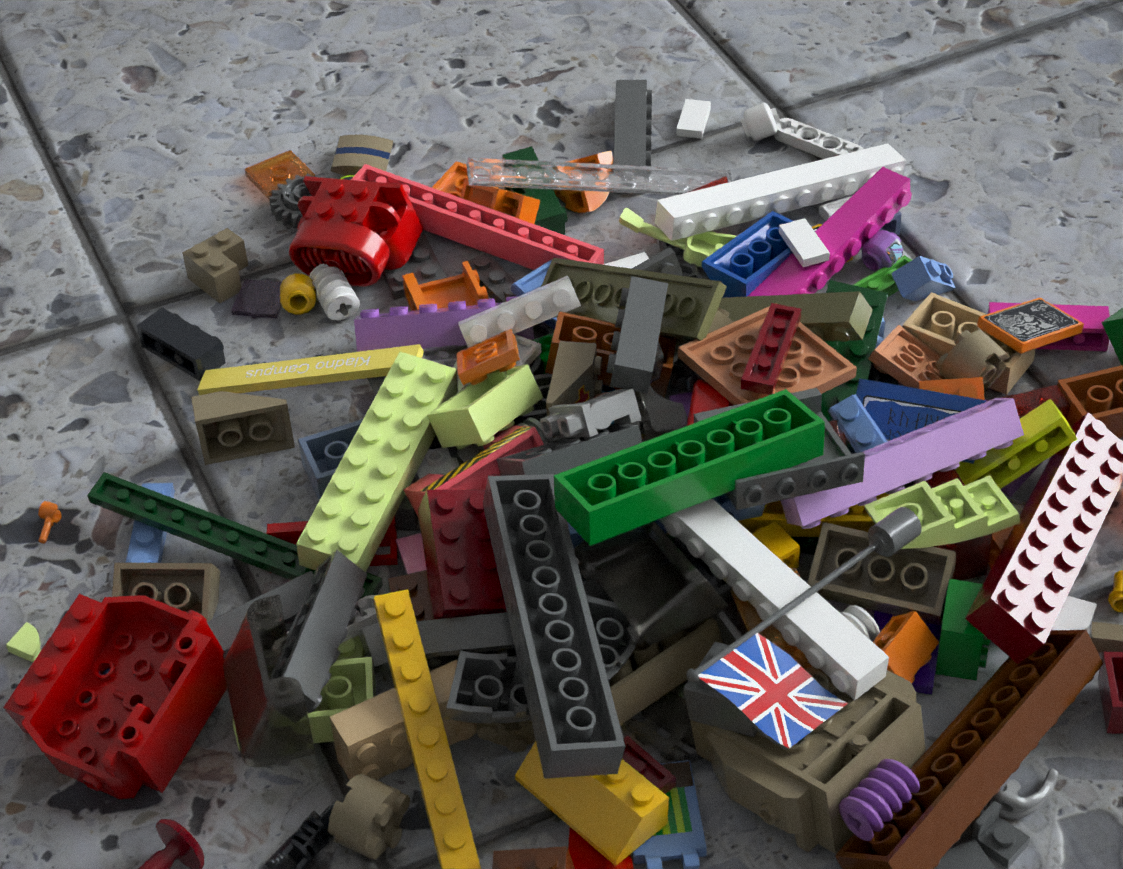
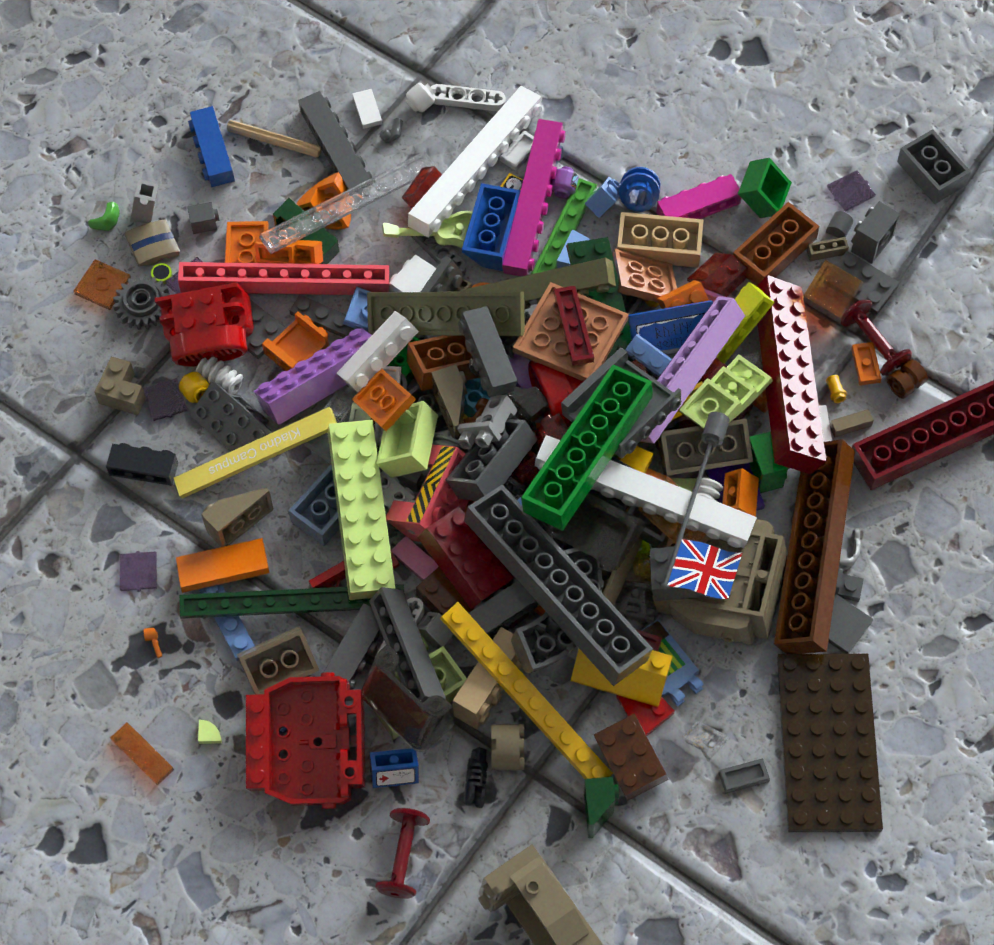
camera: 30 degrees left, 20 degrees up
(92, 447) = (138, 571): none -> clear purple piece
(186, 473) = (222, 565): none -> orange tile
(207, 776) = (394, 767): none -> blue brick
(312, 331) = (229, 418): none -> dark grey bracket
(332, 120) = (108, 220): none -> bright green hair
(376, 108) = (144, 202): none -> light grey brick
(432, 150) = (203, 217): none -> dark grey brick
(492, 95) = (212, 147): none -> blue brick
(568, 112) = (274, 138): none -> tan axle
(699, 148) = (390, 135): none -> dark grey arm
(804, 242) = (520, 205): white tile -> none
(878, 798) = (783, 602): medium lavender piece -> none
(973, 357) = (679, 263): dark tan brick -> none
(988, 284) = (639, 189): none -> blue piece
(1030, 325) = (697, 215): tile -> none

